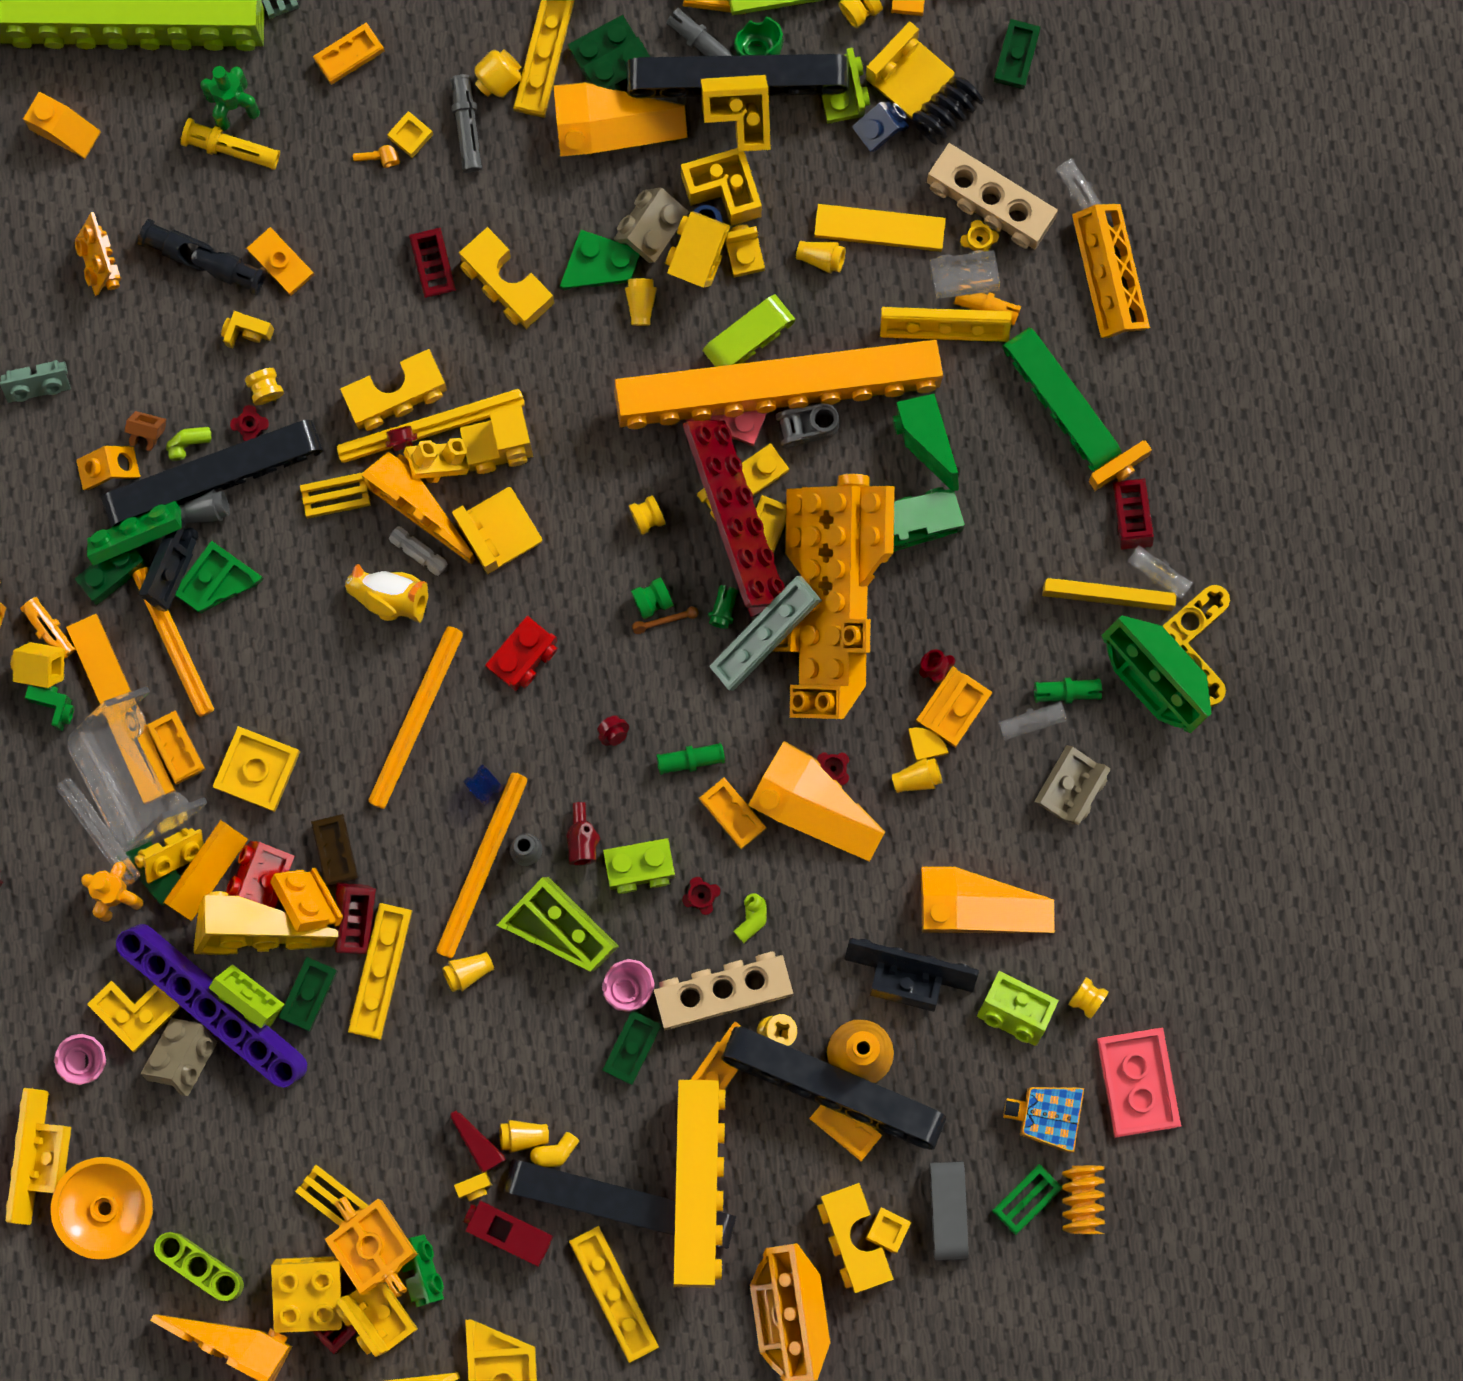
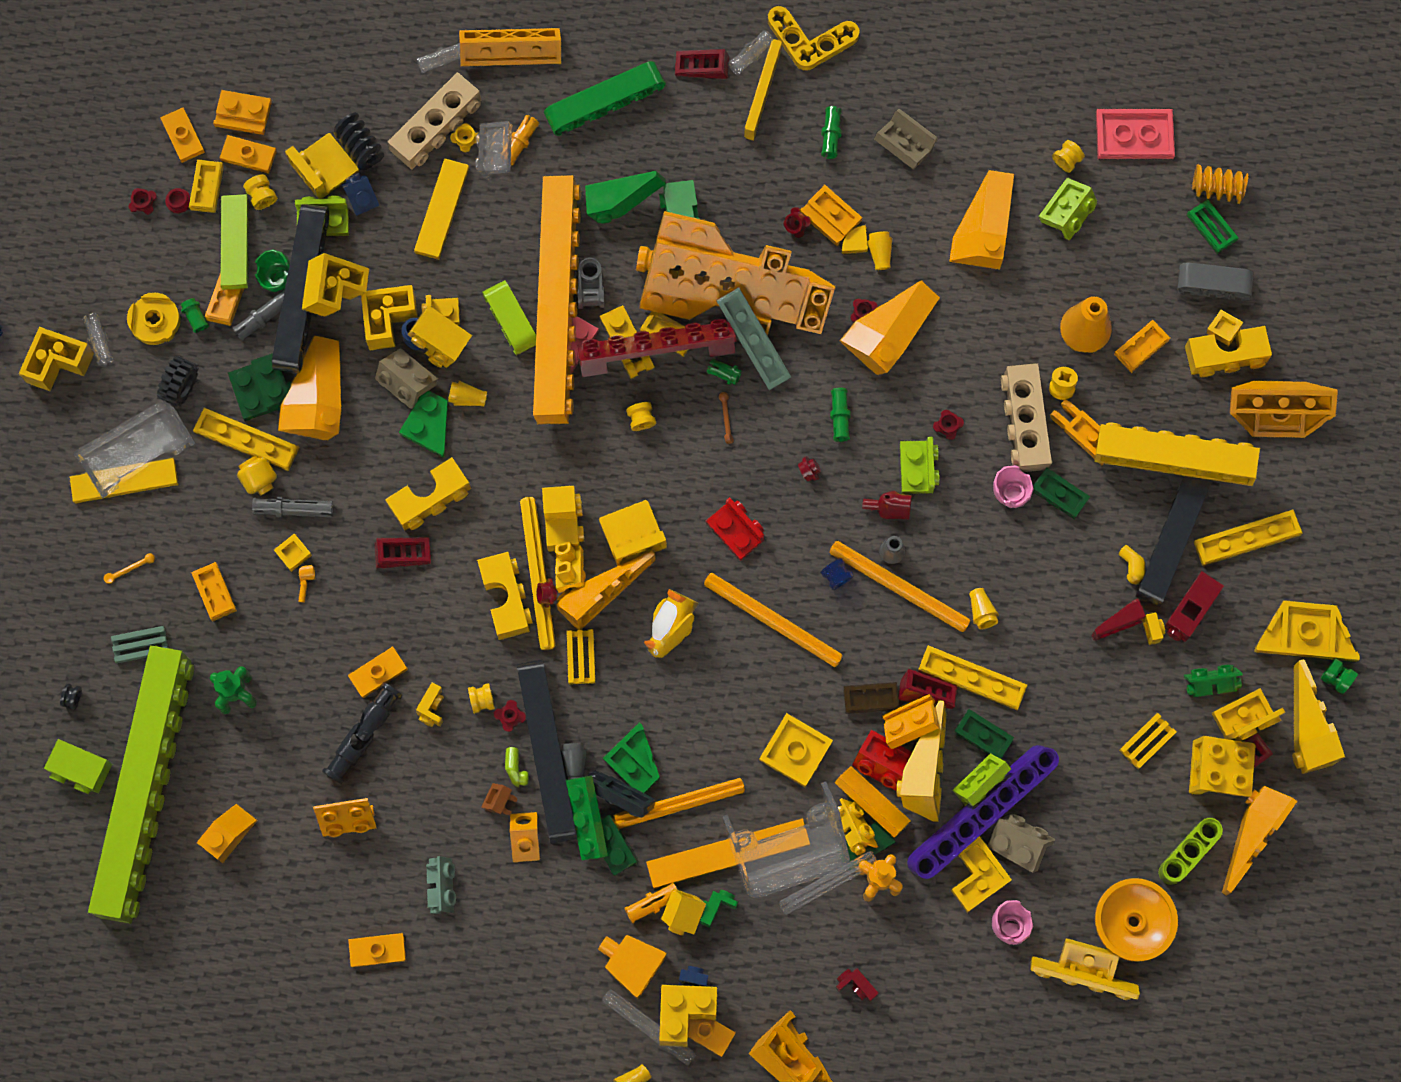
camera: 80 degrees left, 5 degrees down
(175, 747) = (768, 812): light orange plate -> none
(214, 142) = (264, 710): yellow pin -> none
(371, 1246) = (1193, 711): light orange plate -> none
(418, 551) = (638, 598): light grey axle -> none
(522, 1135) = (1117, 588): yellow cone -> none
(559, 925) = (958, 532): lime wedge -> none
(652, 598) = (709, 423): green wheel -> none
(732, 813) = (888, 390): light orange plate -> none
(755, 917) = (971, 387): lime arm -> none
(823, 255) = (456, 253): yellow cone -> none
(834, 1088) = (1114, 345): black beam -> none
(909, 976) = (1034, 281): black bracket -> none
(945, 324) = (529, 171): yellow tile -> none
(1017, 54) = (323, 85): dark green plate -> none
(1032, 721) = (850, 161): clear pin -> none
(1048, 1115) = (1153, 198): torso -> none
(1121, 466) = (665, 65): light orange plate -> none
(1158, 672) = (833, 60): green wedge -> none

